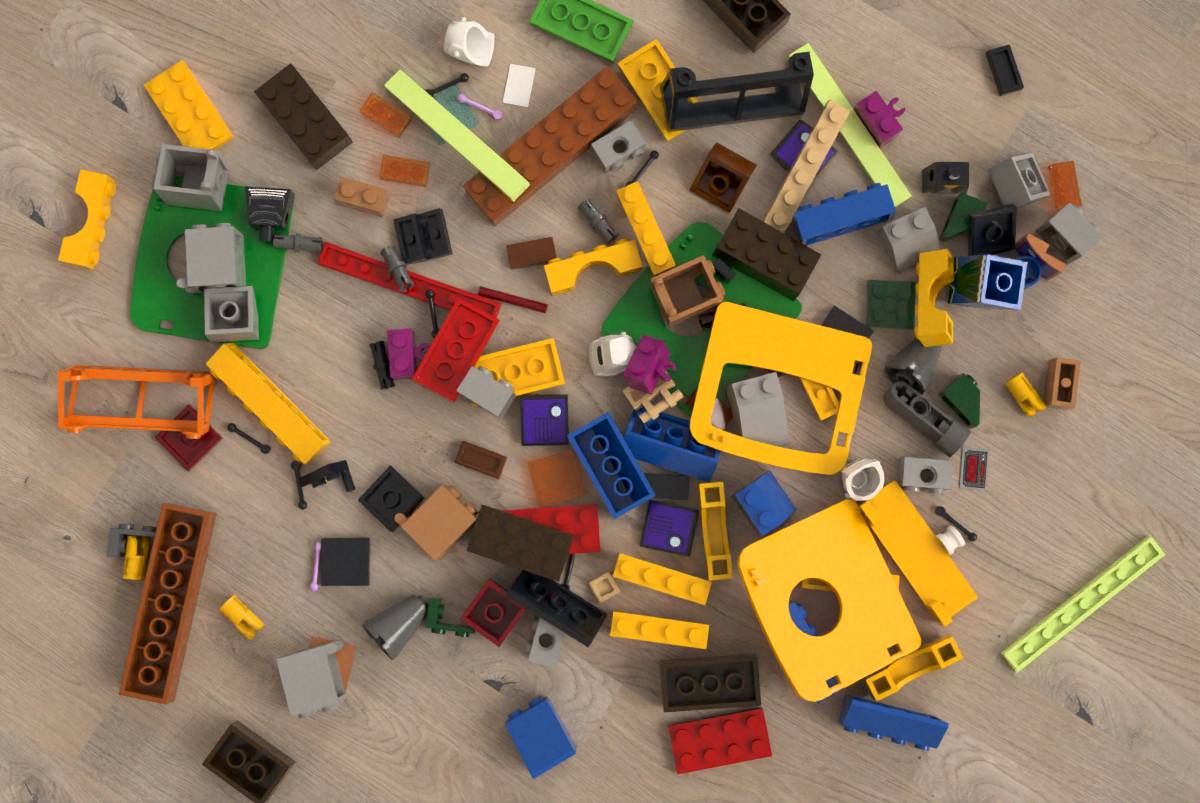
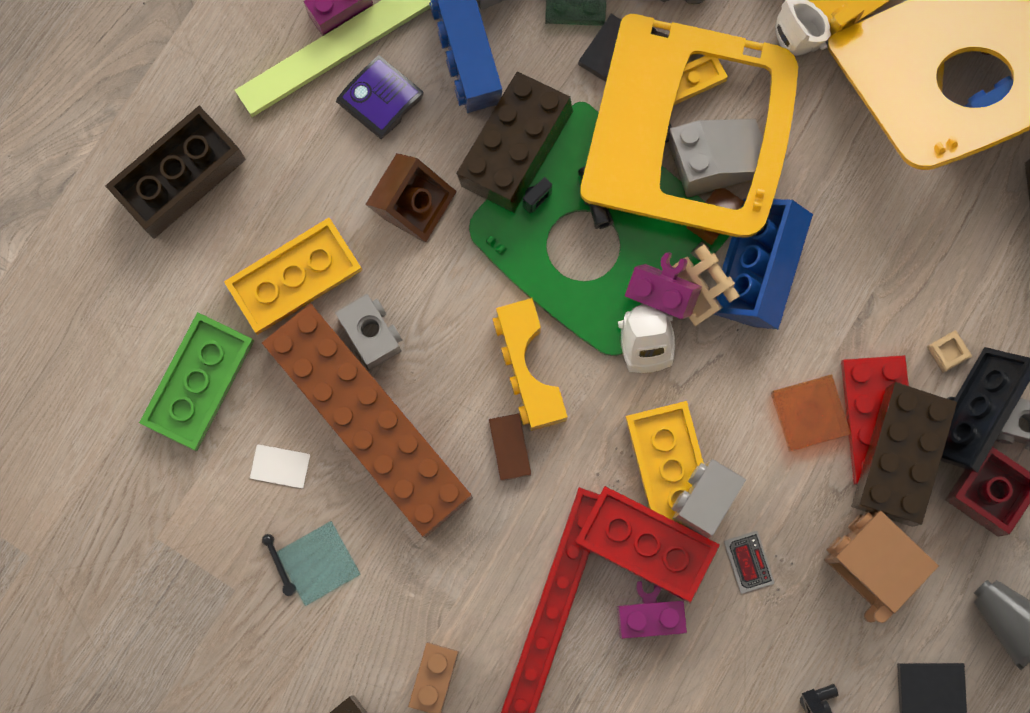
camera: 90 degrees left, 5 degrees down
(381, 365) = (665, 648): black pin -> none
(385, 114) = (318, 647): clear orange plate -> none
(391, 496) = (846, 633): black tile -> none
(397, 268) = (534, 627): dark grey pin -> none
(404, 170) = (396, 620): clear orange plate -> none
(423, 236) = (487, 594): black slope -> none
(430, 294) = (618, 575): black hinge -> none
(436, 612) = (1015, 563): dark green bracket -> none
(445, 430) = (749, 562): none -> sticker
(457, 135) = (351, 545): yellowish green tile -> none
(469, 42) = (221, 532): white helmet -> none
(480, 459) = (788, 513): reddish brown tile -> none
(497, 115) = (320, 495): lavender hinge -> none
(512, 299) = (573, 472): dark red bar -> none
(544, 420) = (734, 428): dark purple slope -> none
(598, 221) = (468, 358): dark grey pin -> none
(611, 465) = (796, 337): blue slope -> none
(646, 229) = (482, 292): yellow arch -> none
(653, 155) = (419, 318): black hinge -> none
(659, 630) = (1004, 298): yellow arch -> none
(662, 579) = (945, 256): yellow arch -> none
(669, 486) = (816, 274): black tile -> none
(669, 528) = (871, 267): dark purple slope -> none
(679, 294) = (571, 251): medium nougat container -> none
(714, 531) = (902, 206): yellow arch -> none
(764, 504) = (840, 147): blue slope -> none
(787, 101) = (318, 219): black windscreen -> none
(806, 166) = (399, 91): tan plate -> none

